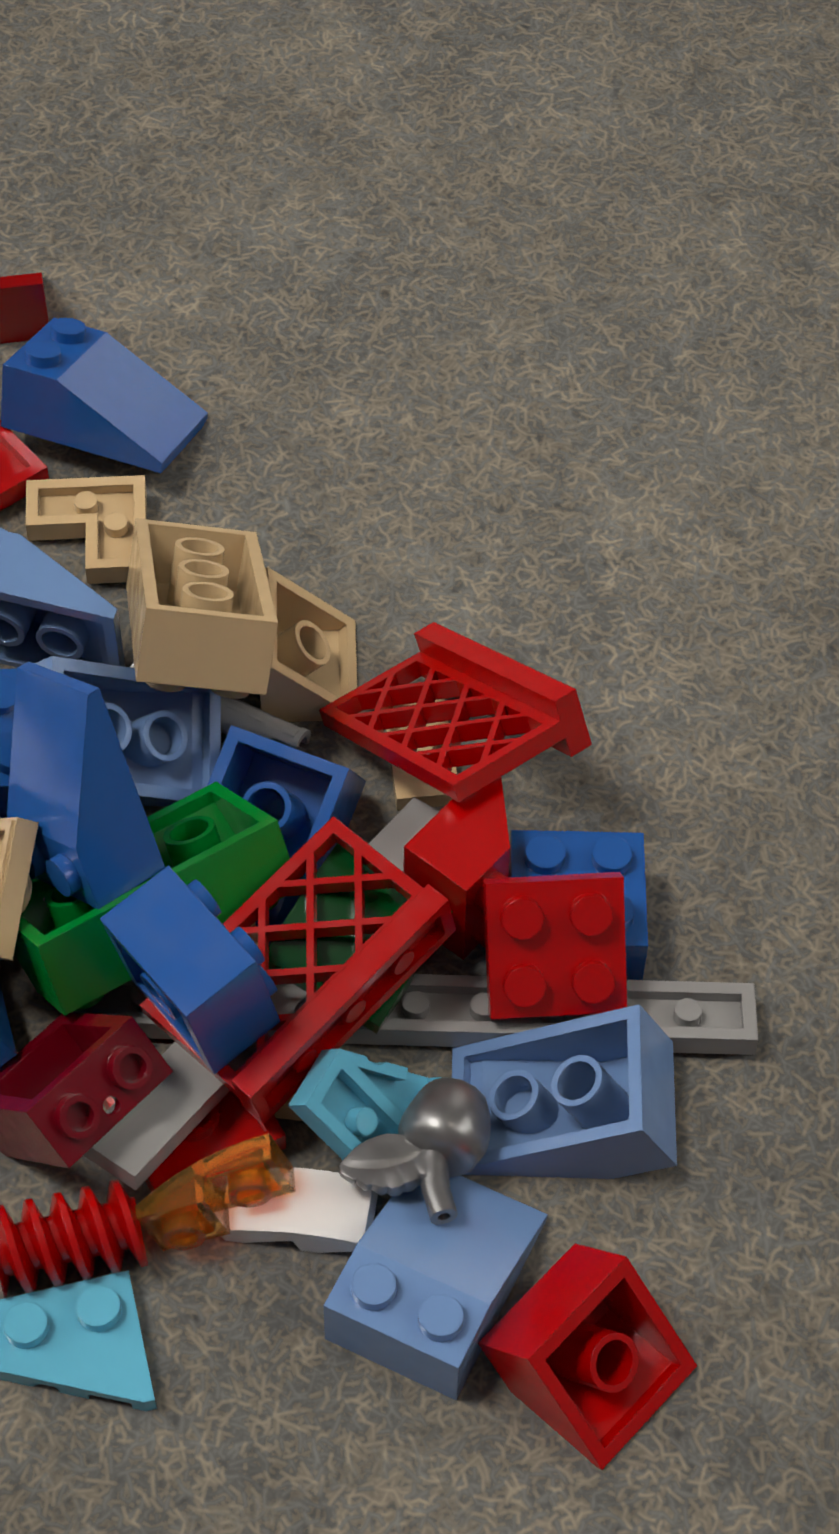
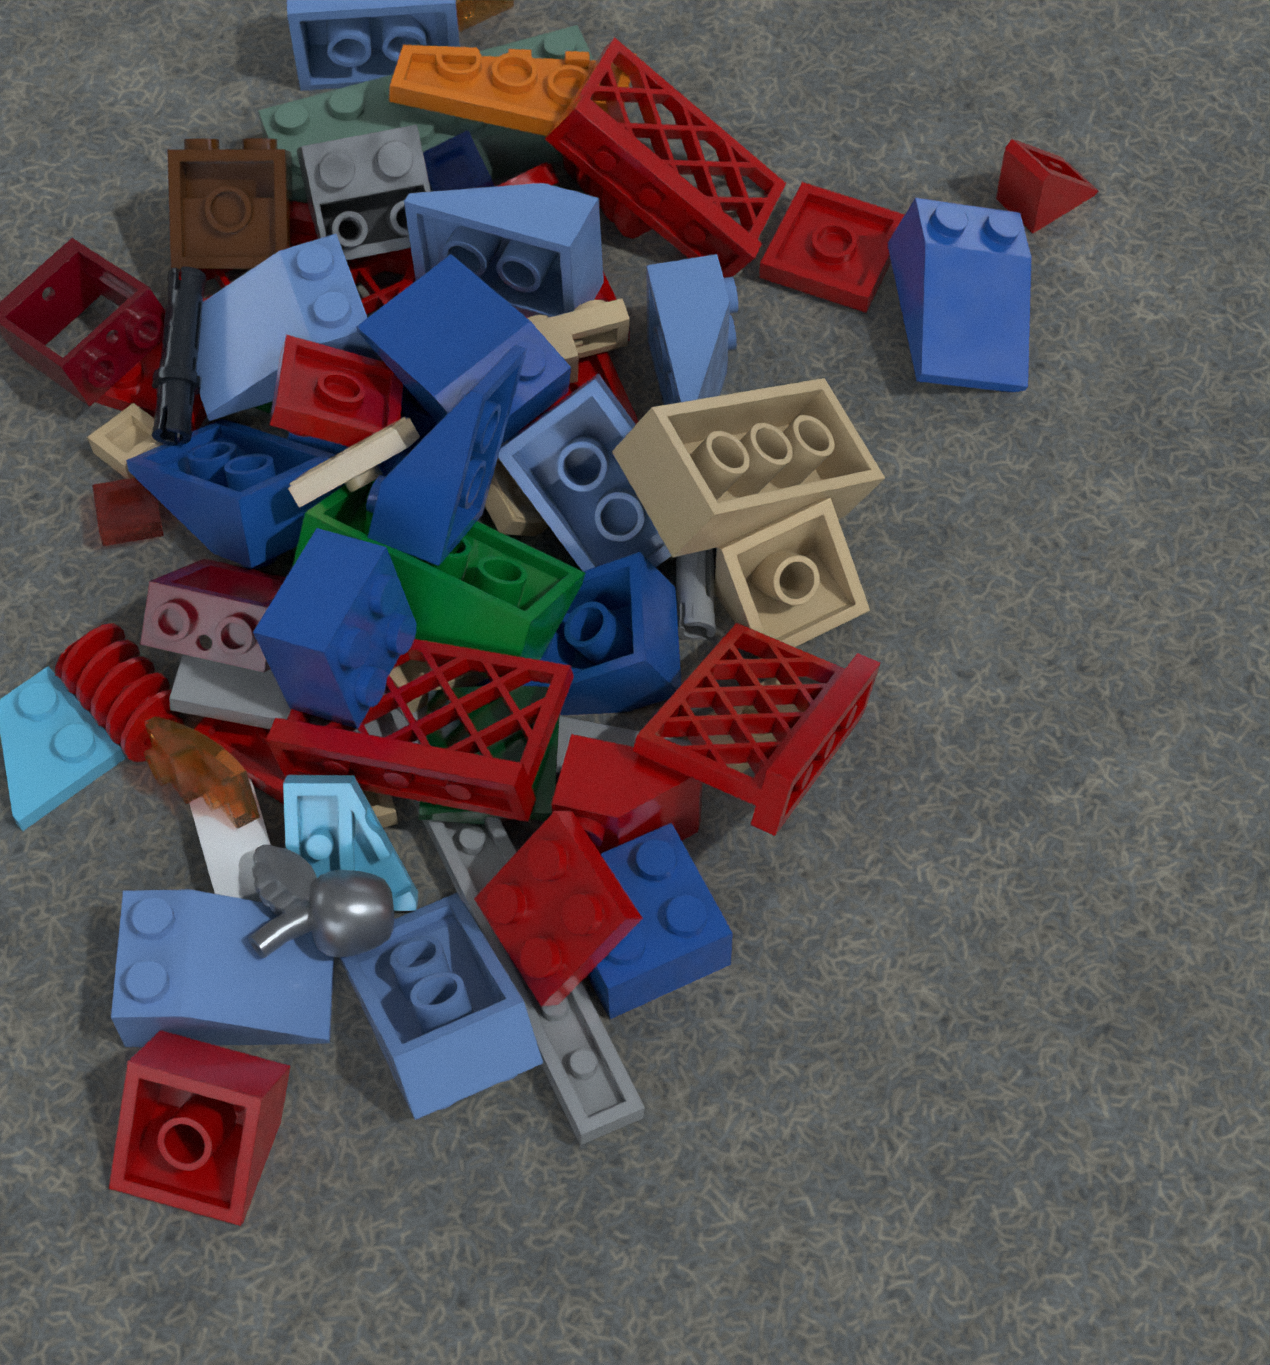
camera: 65 degrees right, 5 degrees up
(90, 509) = (847, 354): tan plate -> none

